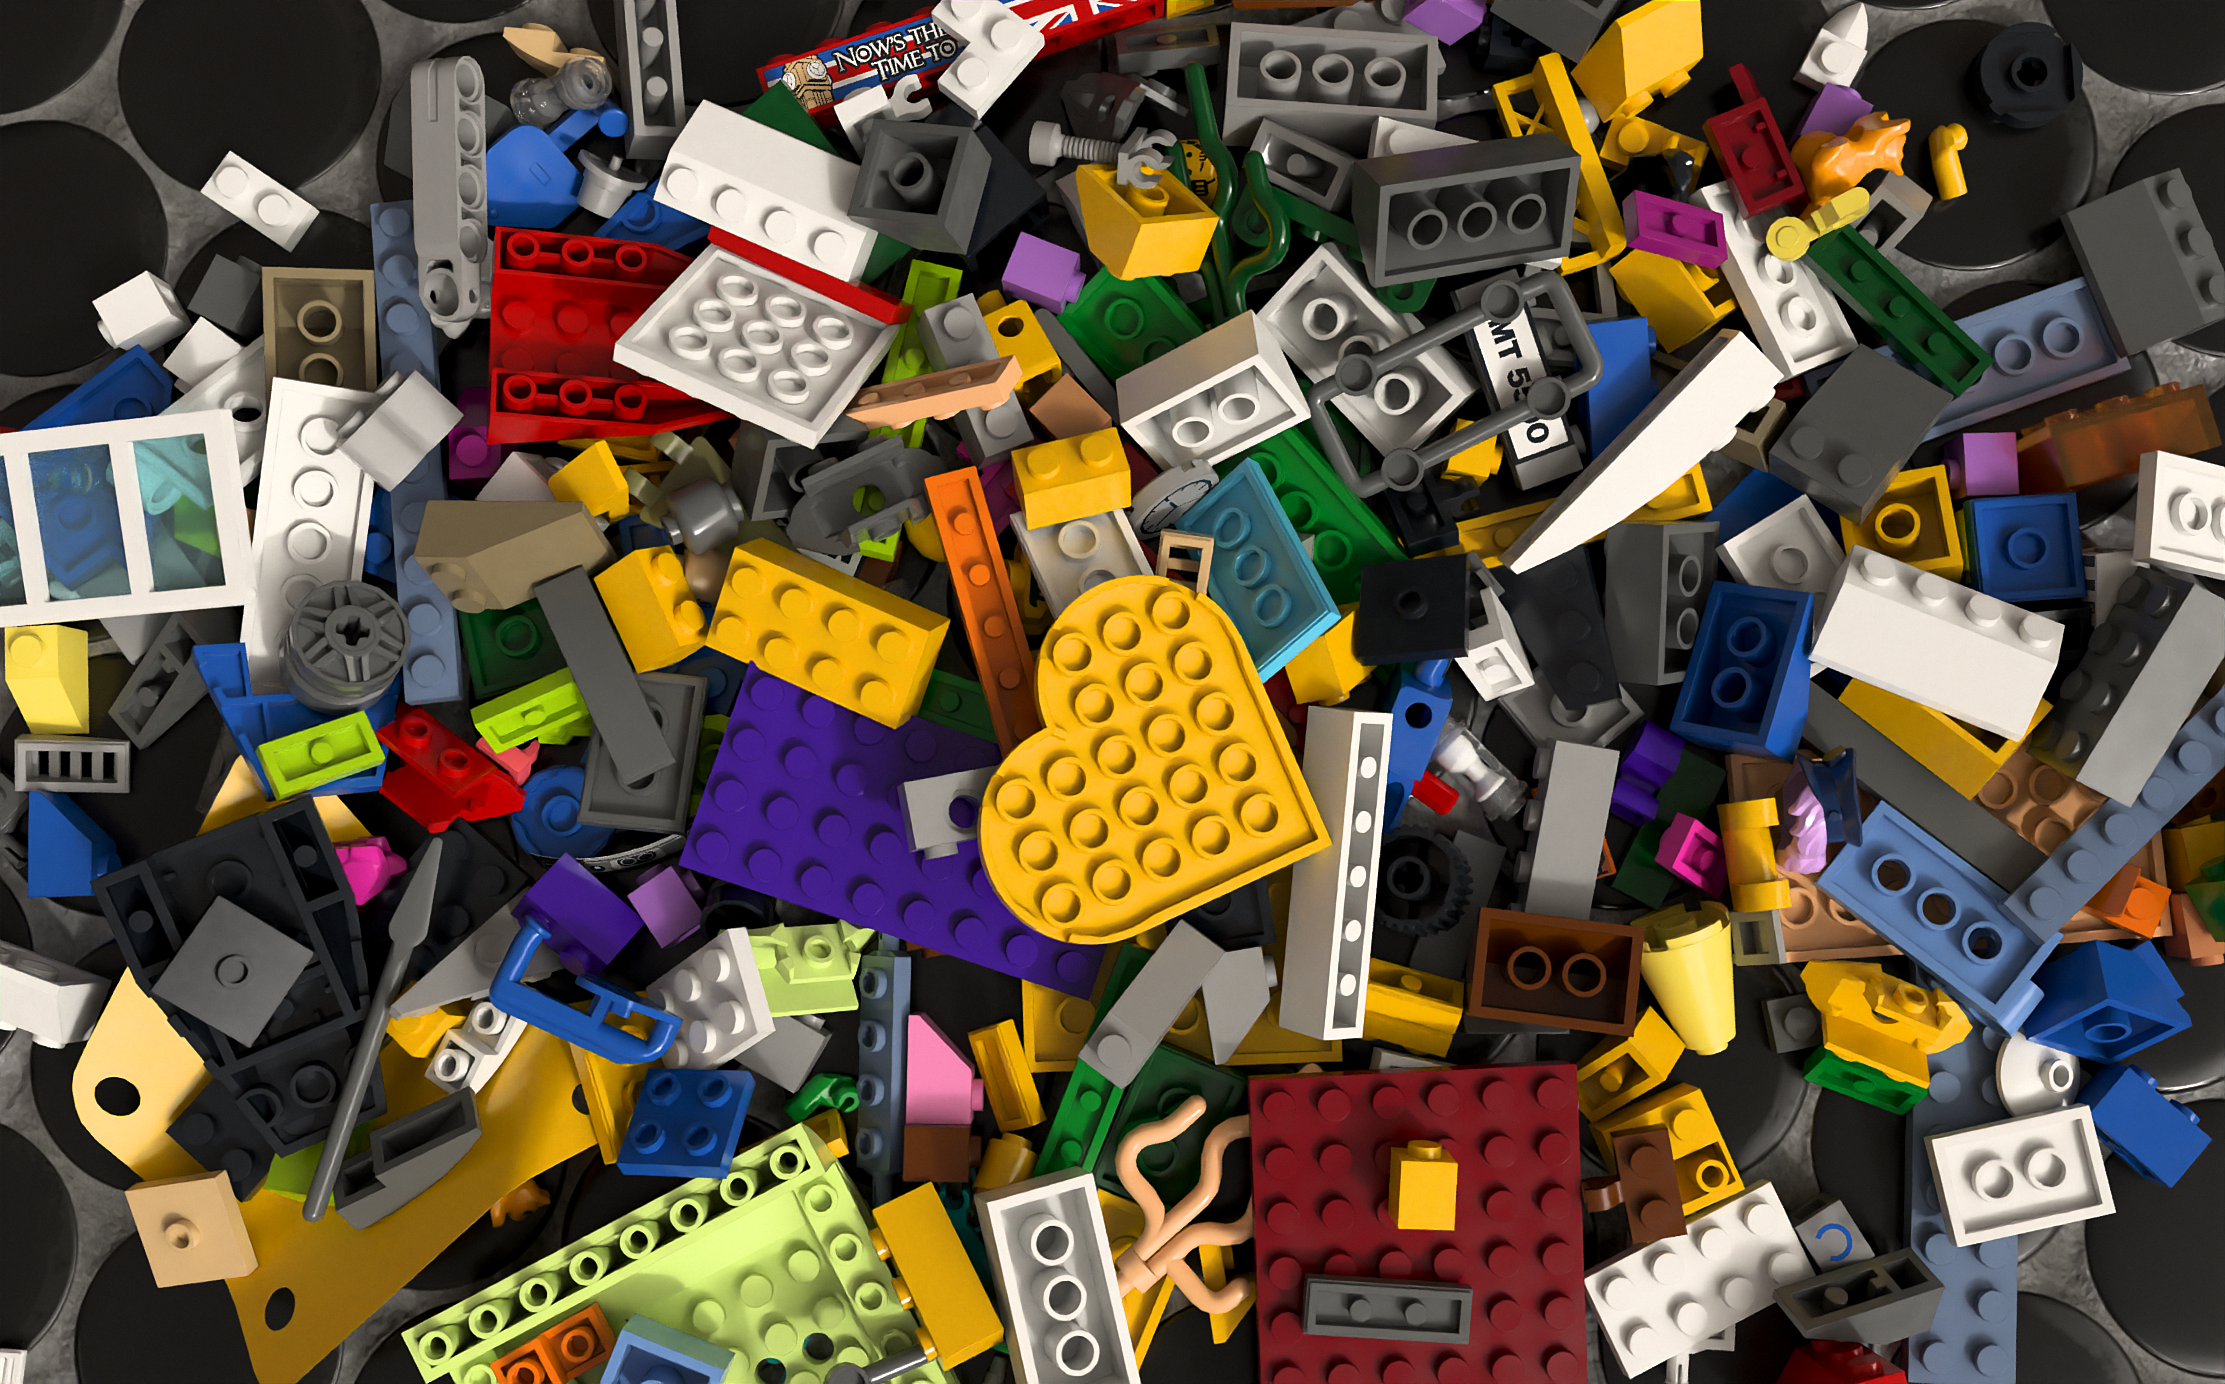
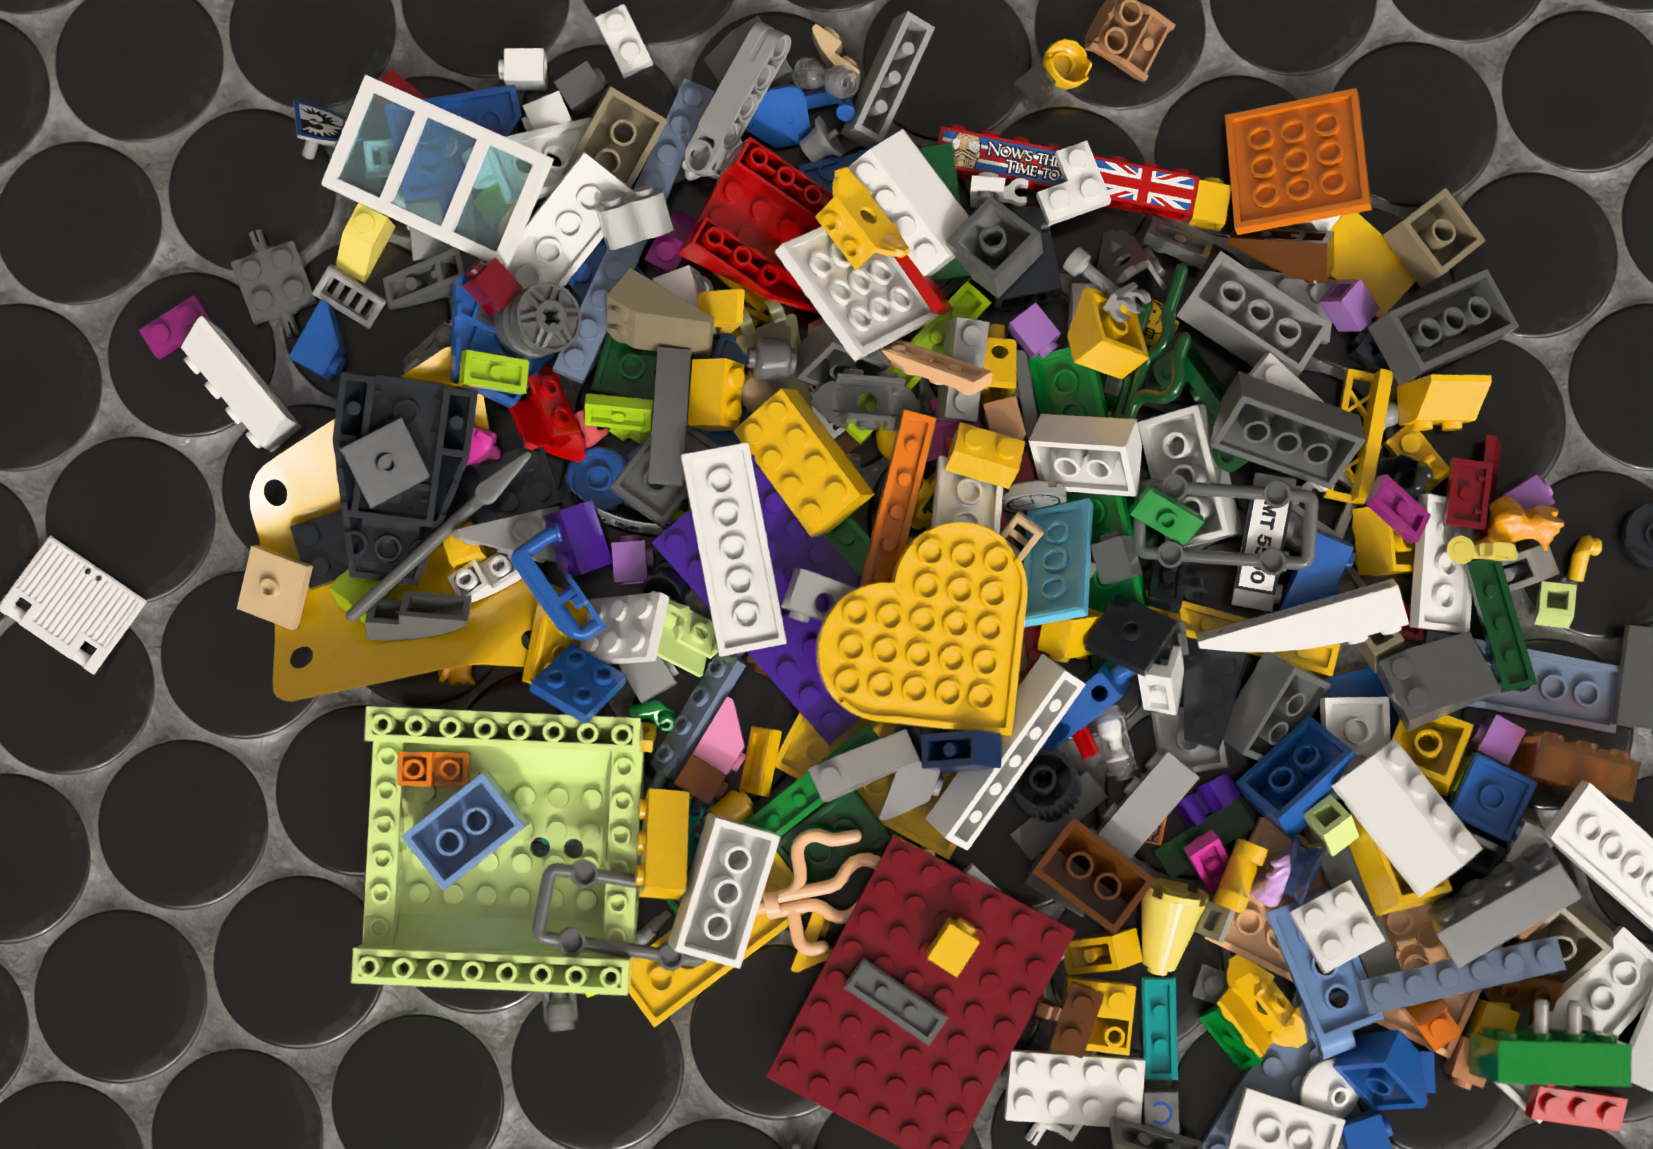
camera: 30 degrees right, 0 degrees up
(245, 635) = (491, 285): none -> dark red brick
(710, 256) = (858, 222): none -> yellow piece
(796, 809) = (733, 549): none -> white plate
(1276, 906) = (962, 751): none -> dark blue brick
(1306, 166) = (1214, 355): light grey slope -> none
(1331, 517) = (1115, 558): none -> dark grey brick
(1366, 419) = (1166, 515): none -> green plate
(1411, 1008) = (1002, 852): yellow brick -> none
(1476, 461) = (1215, 573): yellow plate -> none
(1758, 1121) = (1159, 1027): none -> teal tile
(1836, 50) = (1557, 459): white plate -> none
(1837, 711) = (1331, 825): none -> yellowish green brick
(1925, 846) = (1337, 926): none -> white plate
(1953, 242) = (1555, 604): none -> yellowish green brick

